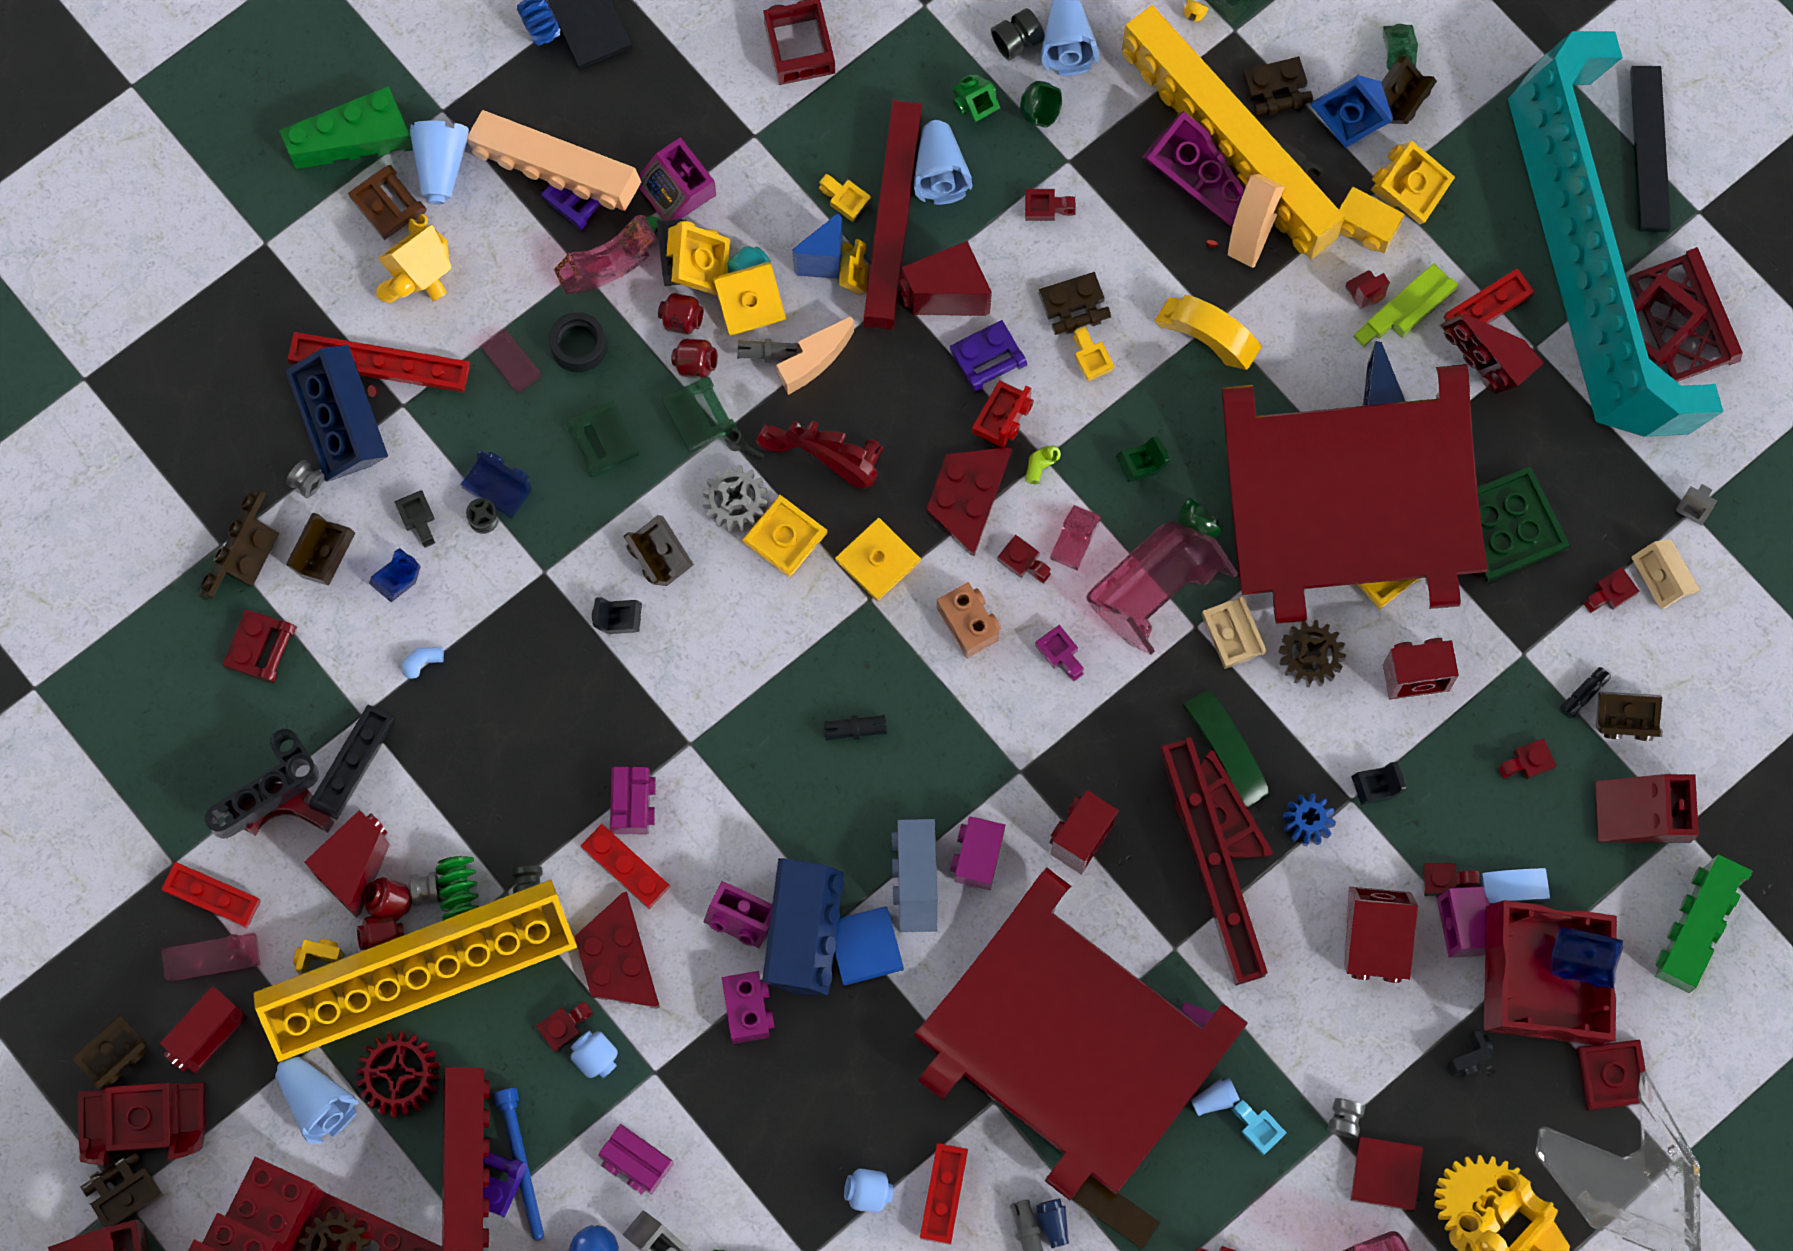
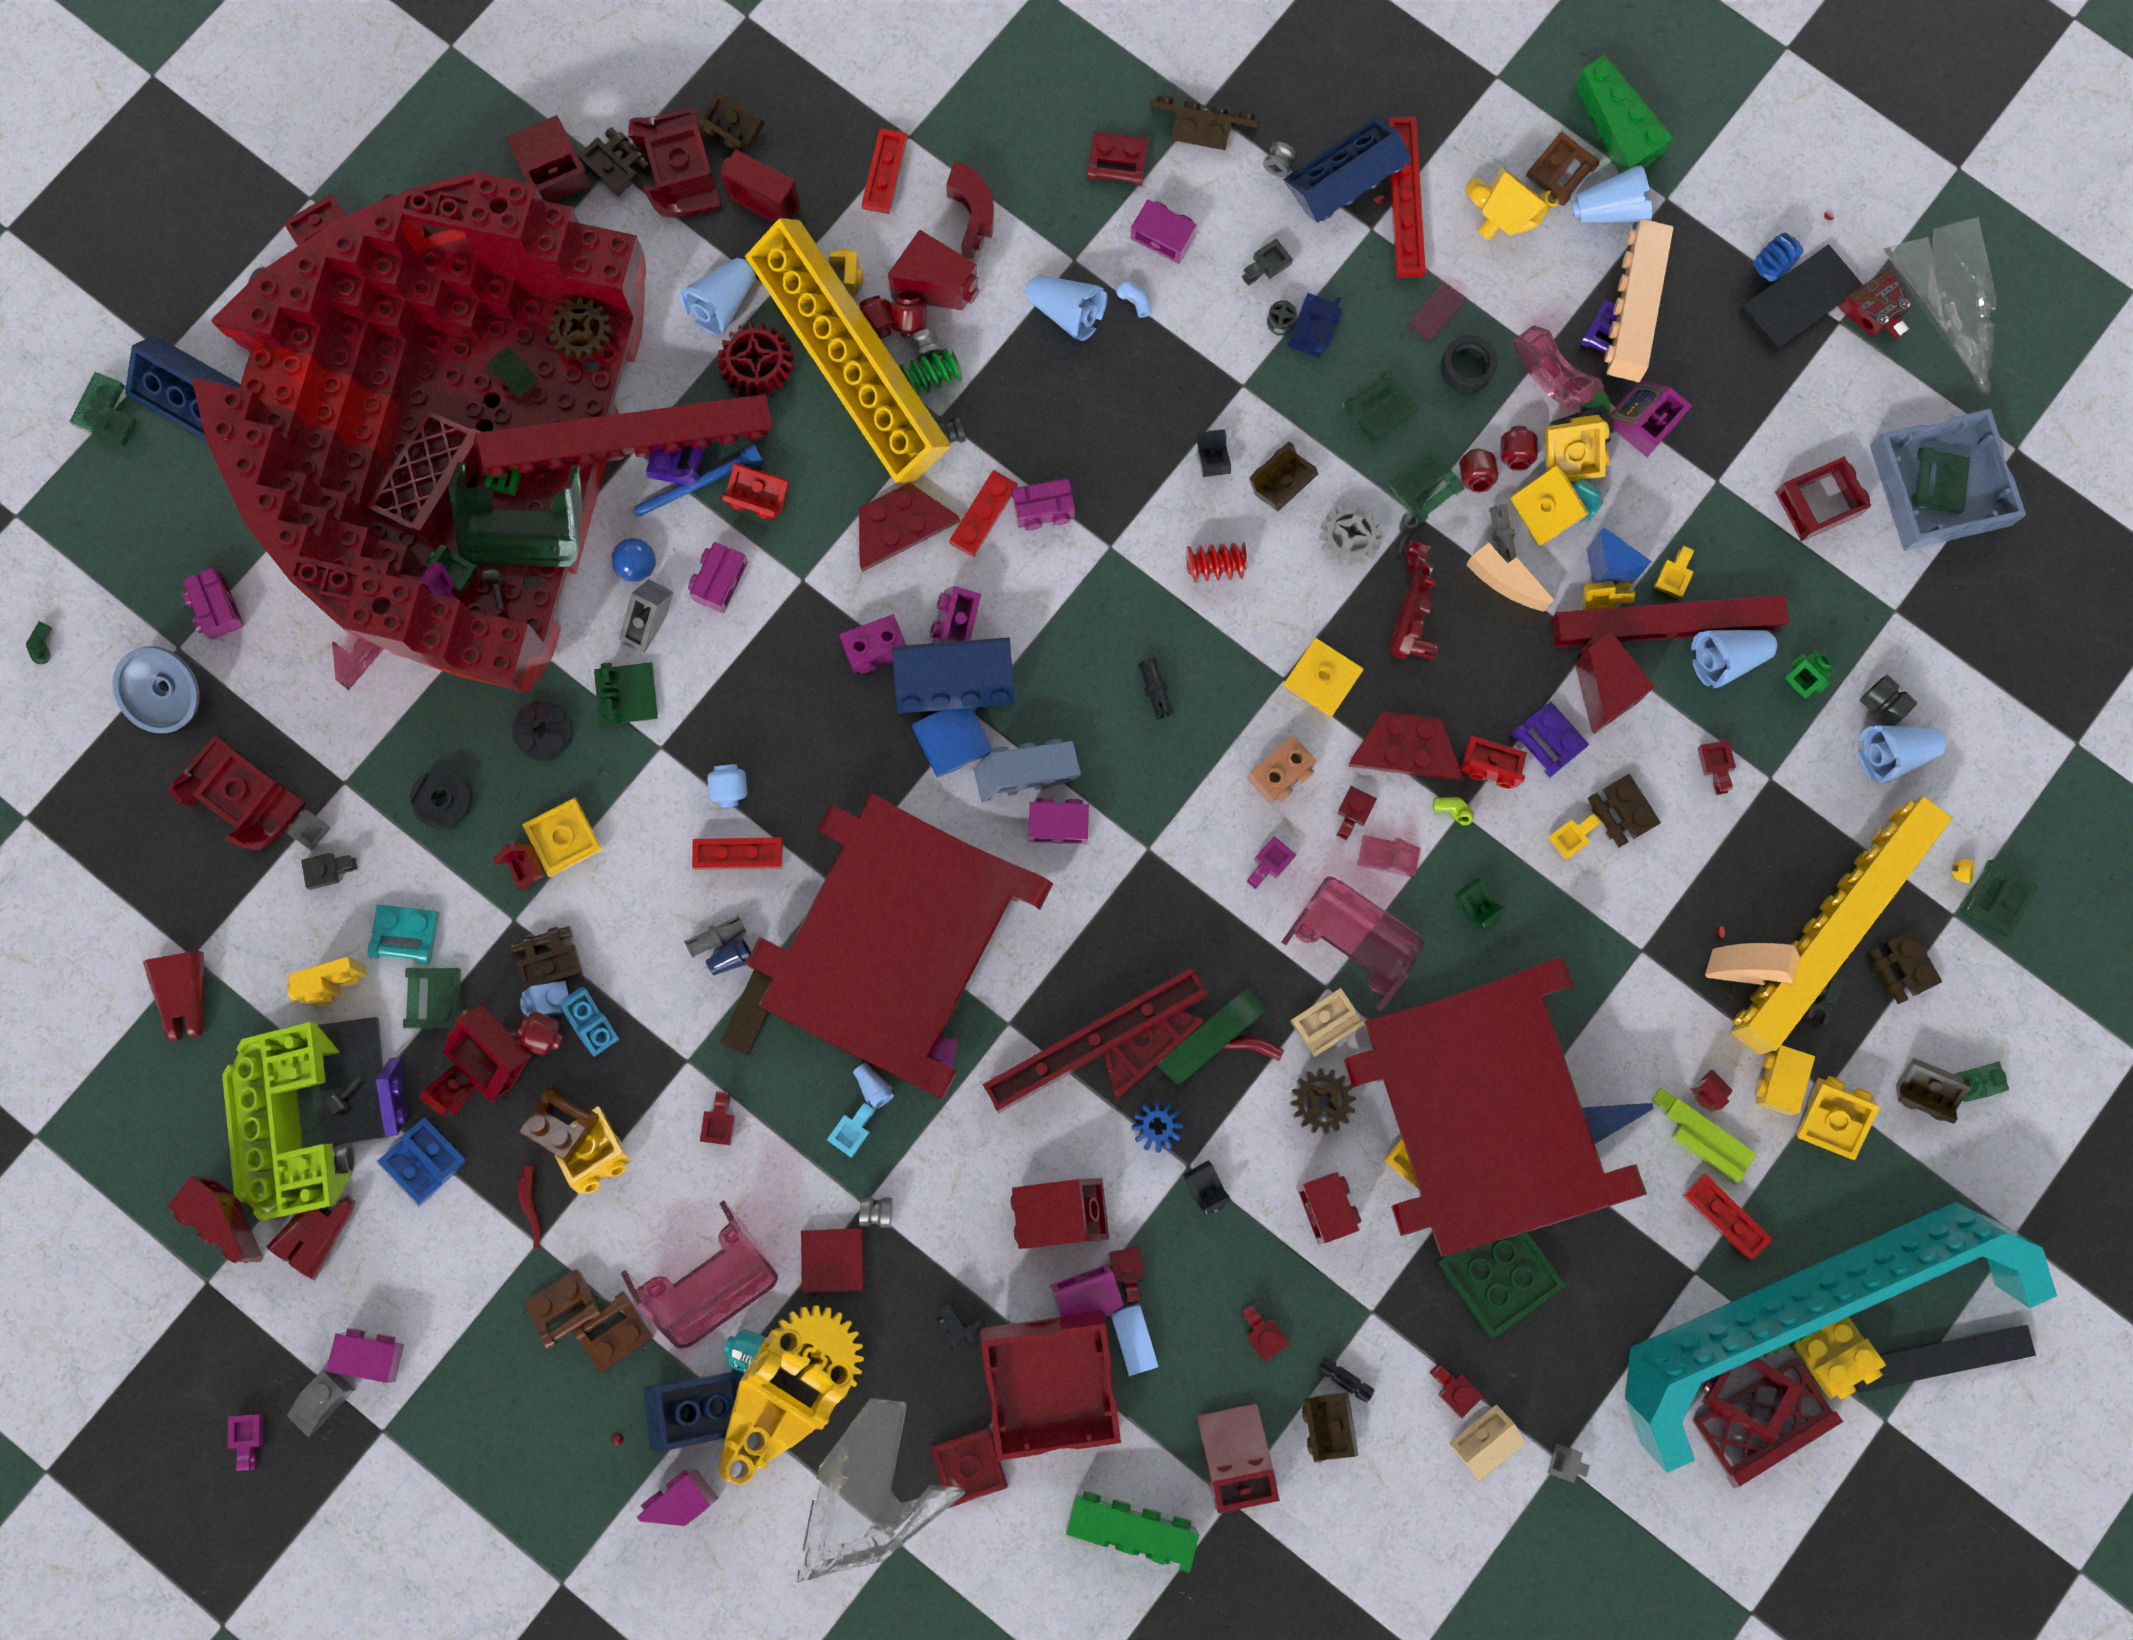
camera: 75 degrees right, 5 degrees up
(210, 956) = (831, 185): clear pink piece -> none
(259, 788) = (981, 181): black beam -> none
(320, 549) = (1216, 185): dark brown bracket -> none
(352, 762) = (1024, 256): black tile -> none
(357, 613) = (1163, 230): none -> magenta brick
(396, 576) = (1206, 256): clear blue bracket -> none
(414, 730) = (1068, 303): none -> light blue cone
(548, 1101) = (756, 491): none -> red bracket
(561, 1028) = (827, 491): dark red plate -> none
(594, 1054) = (805, 521): light blue head -> none
(733, 637) = (1217, 561): none -> red piece
(784, 536) = (1325, 587): yellow plate -> none
(1041, 103) = (1821, 738): dark green hair -> none
(1083, 832) = (1097, 912): dark red brick -> none
(1196, 166) = (1795, 897): magenta wedge -> none
(1199, 519) = (1430, 968): dark green hair -> none
(1212, 326) = (1628, 945): yellow arch -> none
(1243, 704) = (1257, 1044): none -> dark red animal
(1354, 109) = (1898, 1043): blue slope -> none
(1496, 354) = (1670, 1234): dark red slope -> none
(1586, 957) = (1071, 1417): clear blue bracket -> none
(1642, 234) = (1840, 1358): none -> yellow plate

